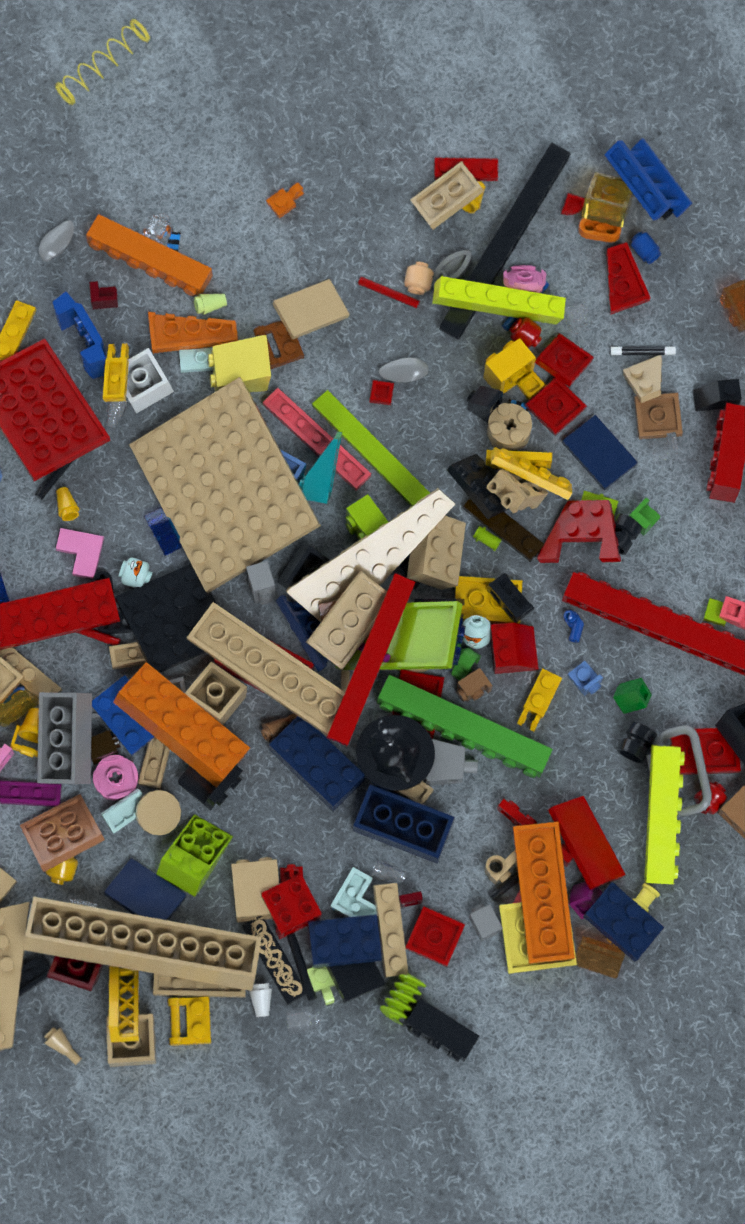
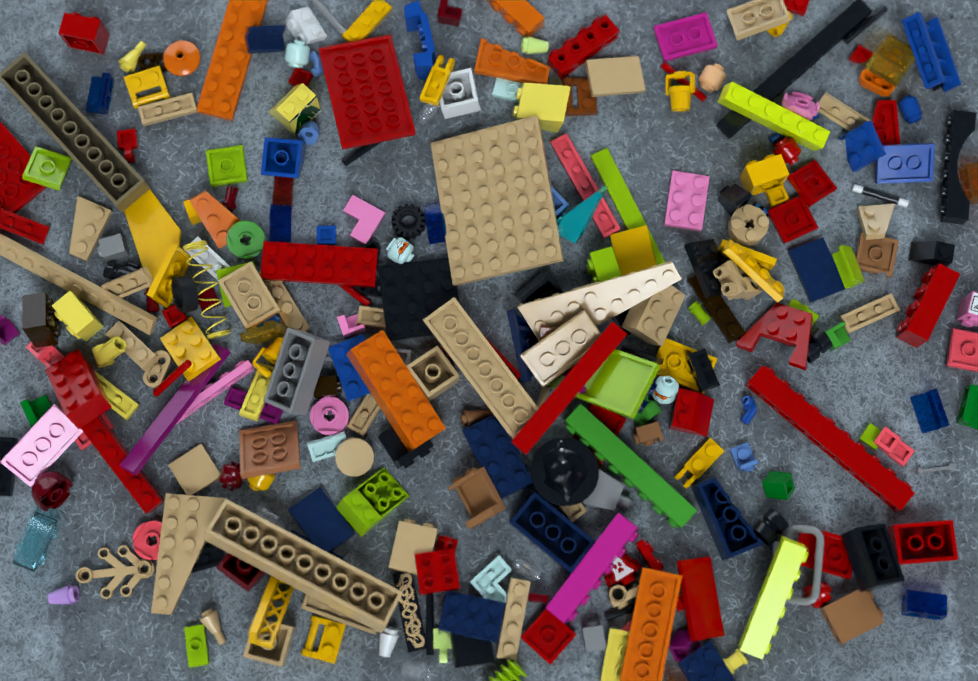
camera: 20 degrees right, 5 degrees up
(26, 780) = (254, 400): none -> light yellow tile
(28, 876) = (230, 476): none -> dark red piece
(46, 581) = (326, 235): none -> blue plate
(50, 1074) = (196, 645): none -> lime plate
(66, 505) = (363, 177): yellow cone -> none
(104, 673) = (349, 325): none -> bright pink panel
(129, 526) = (408, 211): none -> black tyre
(261, 583) = (500, 292): light grey brick -> none
(264, 287) = (583, 46): none -> red brick
(309, 810) = (478, 496): none -> medium nougat panel
(374, 243) = (685, 37): none -> dark pink plate
(381, 392) = (651, 163): red tile -> none
(389, 308) = (680, 95): none -> yellow piece
(392, 490) = (633, 250): none -> yellow tile
(404, 370) = (676, 150): light grey arm -> none
(434, 421) = (686, 201): none -> bright pink plate
(453, 265) = (744, 75): light grey arm -> none
(460, 845) = (592, 568): none -> dark pink brick
(486, 837) = (623, 571): none -> red rock
(567, 170) = (865, 24): none -> black bar
(575, 275) = (840, 113): none -> tan plate
(585, 751) = (724, 520): none -> dark blue wedge
(606, 303) = (863, 146): none -> blue plate
(632, 438) = (848, 267): none -> lime panel
(657, 307) = (906, 163): none -> blue plate
(671, 481) = (869, 313): none -> tan plate
(725, 334) = (954, 201): none -> black arch

